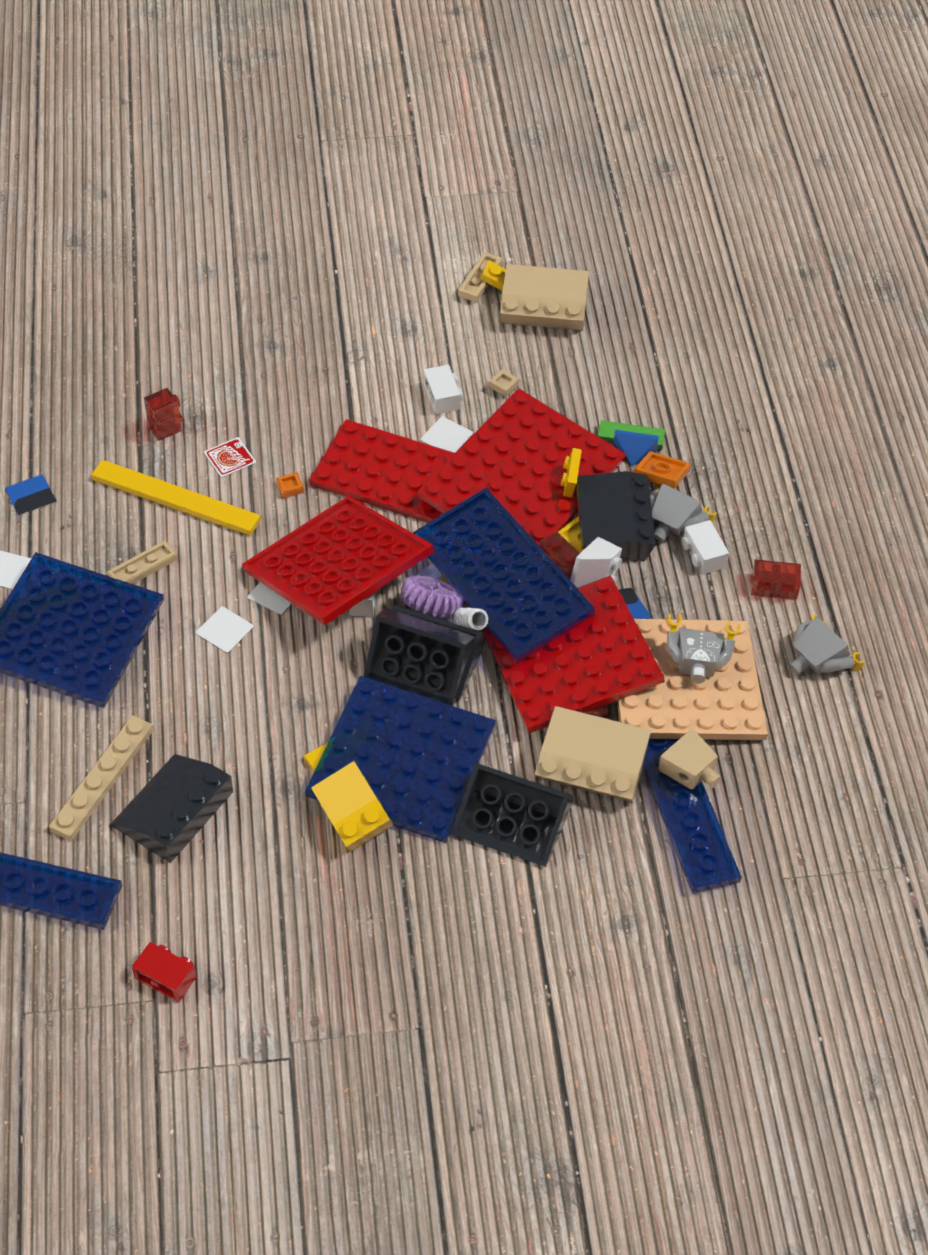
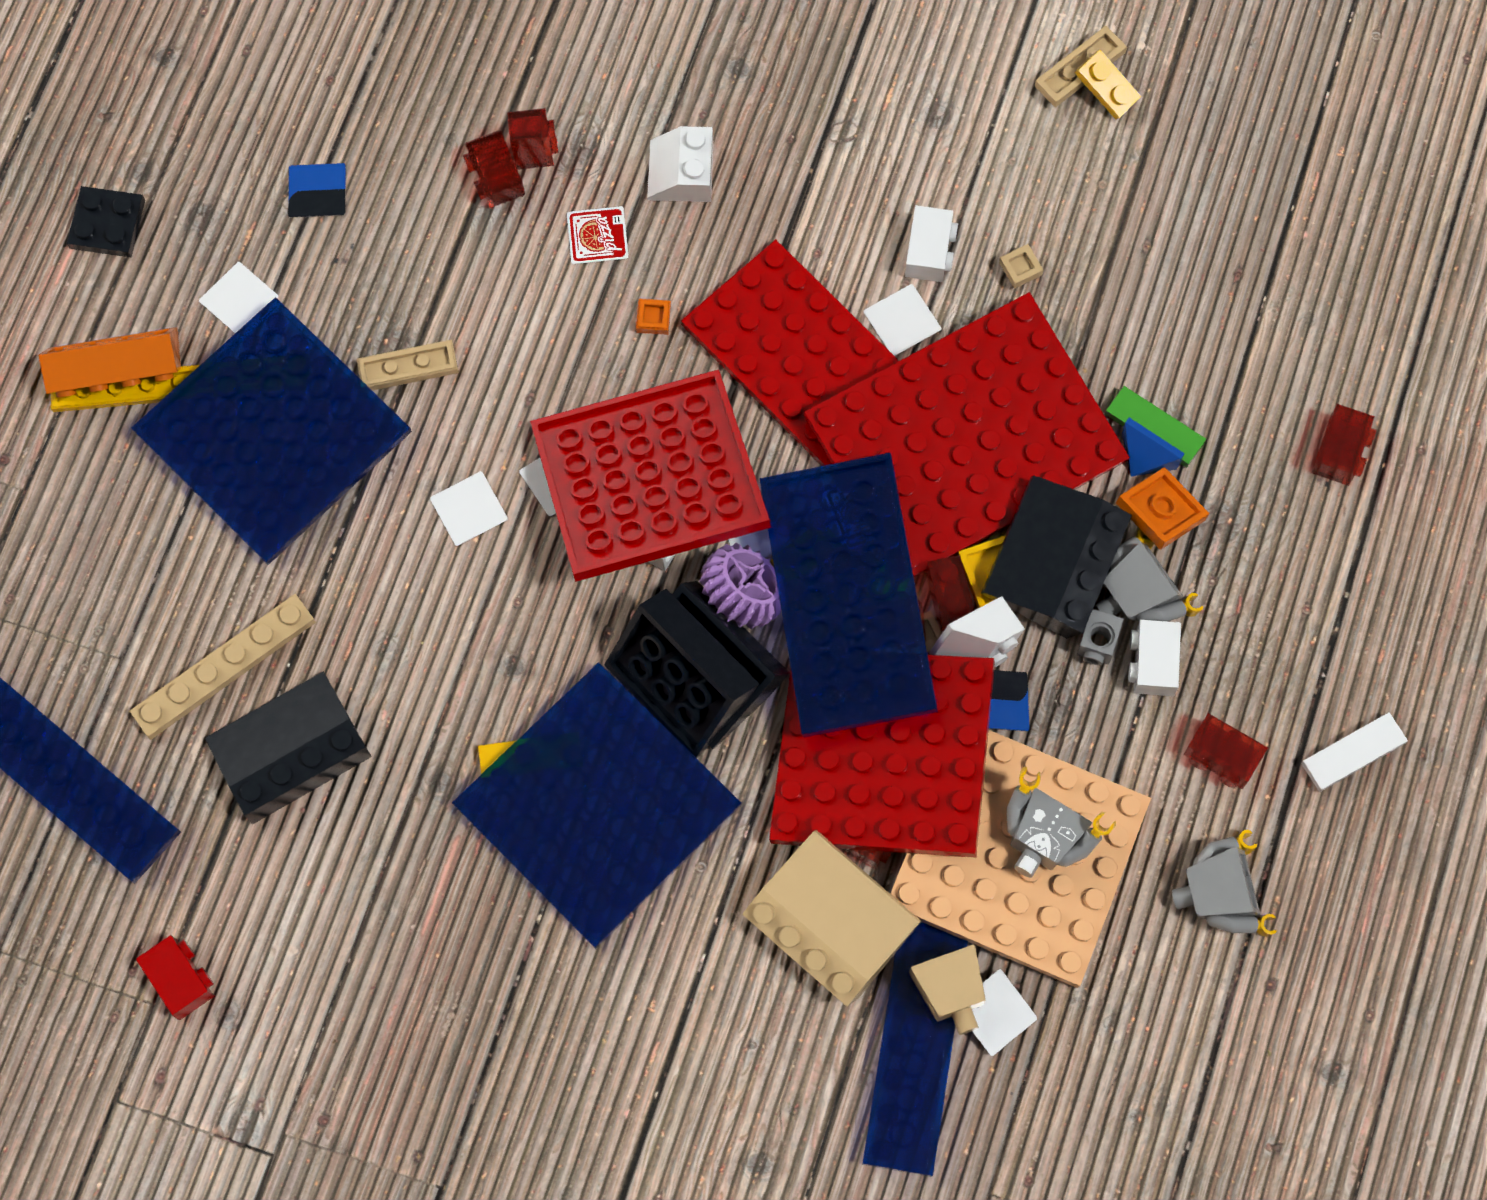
camera: 30 degrees right, 20 degrees up
(145, 441) = (494, 168): none -> clear red brick
(176, 497) = (497, 275): yellow tile -> none
(266, 400) = (681, 165): none -> white slope
(352, 806) = (493, 856): yellow slope -> none
(471, 618) = (772, 647): white piece -> none
(512, 814) = (692, 951): black slope -> none
(544, 297) = (1150, 141): tan slope -> none
(569, 479) = (1033, 456): yellow plate -> none
(667, 549) = (1103, 624): none -> light grey brick
(732, 773) = (1002, 1015): none -> white sticker
(746, 404) = (1343, 445): none -> clear red brick
(849, 554) = (1354, 752): none -> white tile

